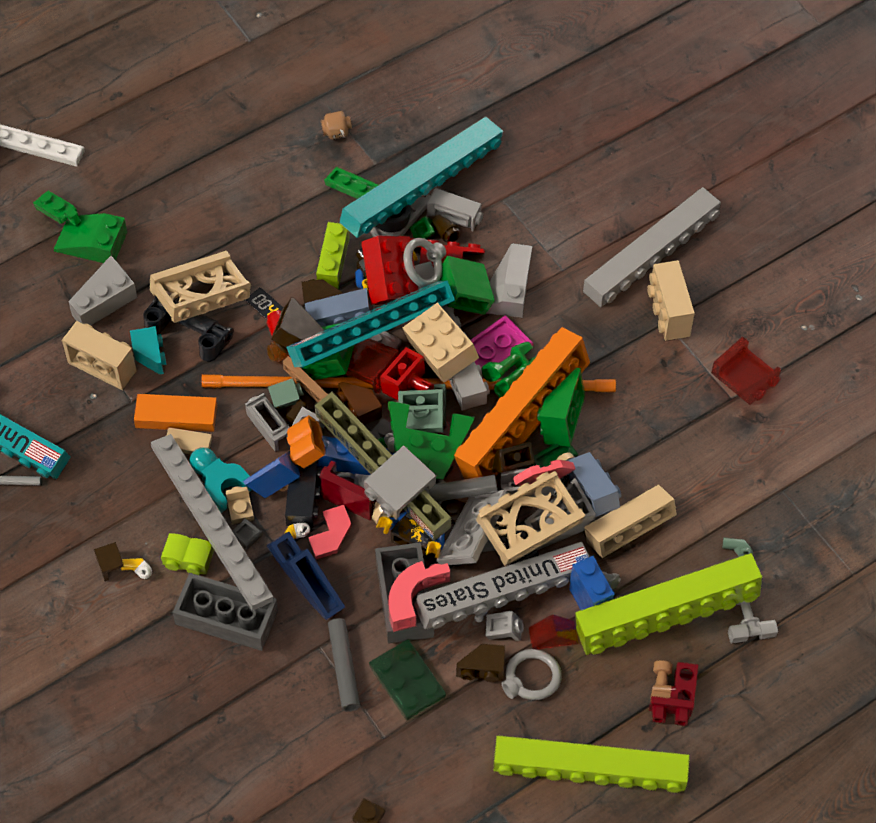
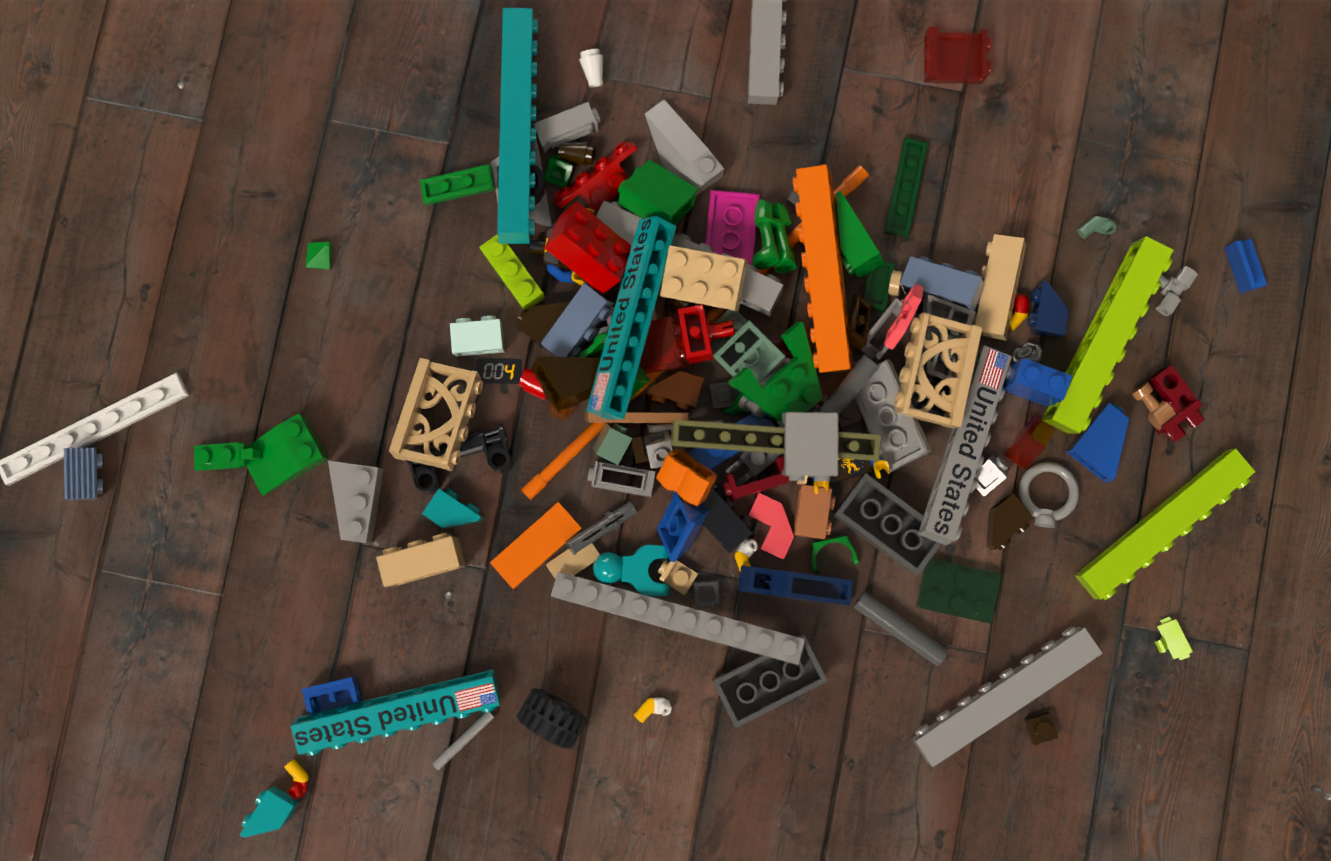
camera: 45 degrees left, 25 degrees up
(71, 505) = (552, 718): none -> black tyre
(108, 559) = (628, 728): dark brown panel -> none
(187, 554) = (682, 660): lime brick -> none
(224, 435) = (623, 513): none -> dark grey pin
(233, 157) = (319, 255): none -> green slope
(272, 272) = (477, 336): none -> light aqua brick
(336, 125) = (377, 138): medium nougat head -> none
(348, 569) = (817, 545): none -> green cap
(360, 545) = (813, 512): none -> nougat brick
(367, 768) = (1006, 695): none -> light grey brick
(407, 586) = (902, 532): coral arch -> none
(435, 253) = (607, 193): light grey piece -> none
(507, 191) = (592, 65): none -> white cone
(601, 673) = (1102, 442): none -> blue slope
(632, 552) = (1021, 311): none -> arm
(633, 419) = (905, 187): none -> dark green tile
(646, 568) = (1048, 314): none -> dark blue slope
(671, 300) = (838, 46): tan brick -> none
(820, 659) = (1245, 265): none -> blue panel

